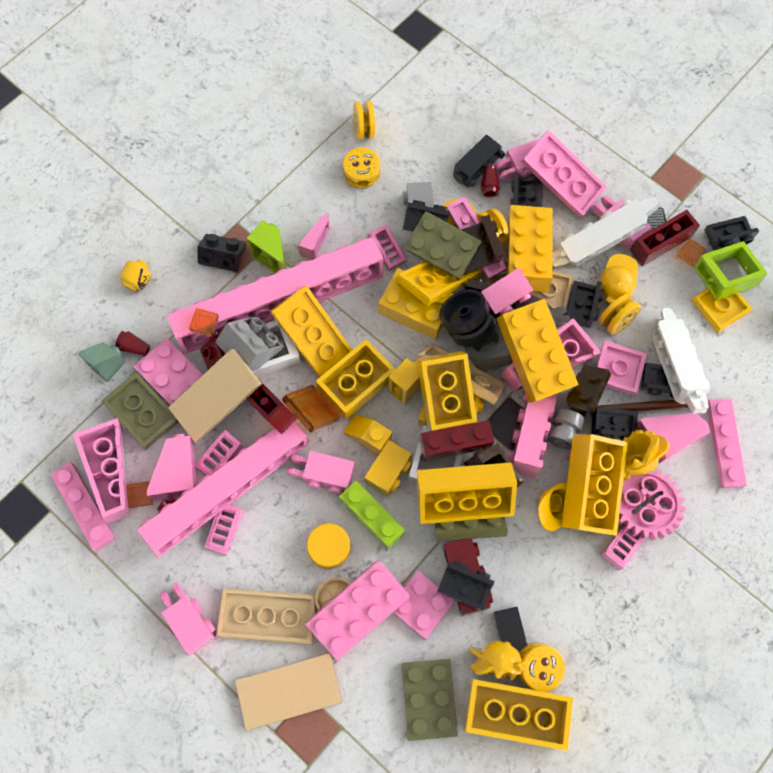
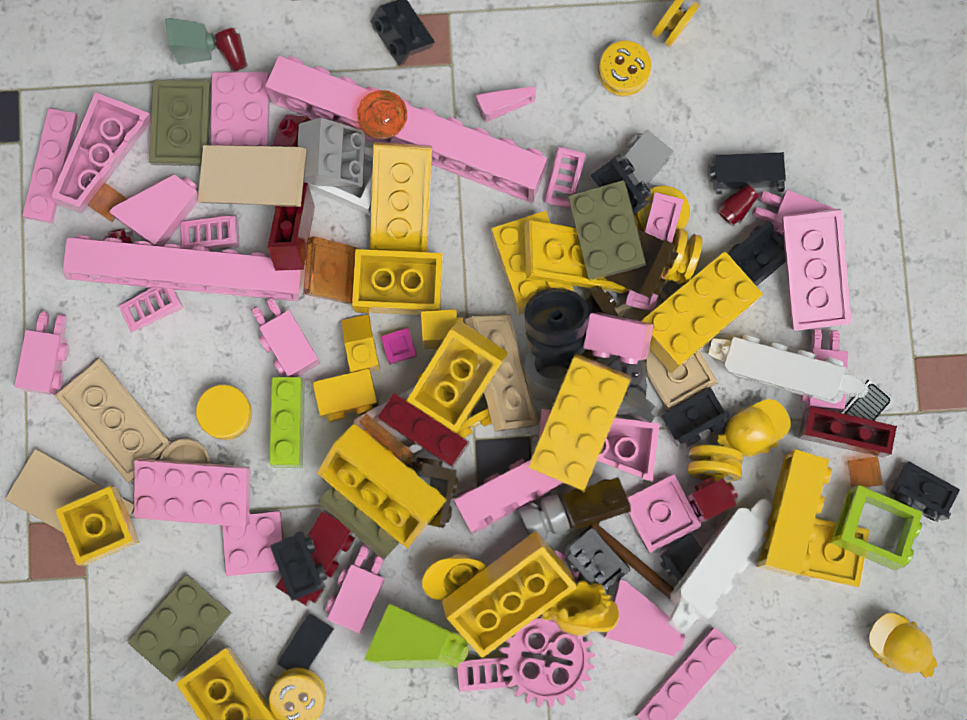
camera: 45 degrees right, 10 degrees up
(203, 322) = (303, 95): clear orange tile -> none
(260, 291) = (382, 114): none -> clear orange hat
(267, 246) = (446, 71): lime slope -> none
(322, 686) = (97, 526): none -> yellow brick
(390, 414) = (398, 346): none -> dark pink plate
(443, 460) = (386, 439): none -> clear orange tile
(499, 659) = (264, 653): yellow hair -> none
(510, 572) = (357, 593): none -> bright pink hinge
(574, 562) = (414, 642): none -> lime slope
(640, 331) = (712, 498): none -> dark red brick
(682, 292) = (794, 513): none -> yellow brick

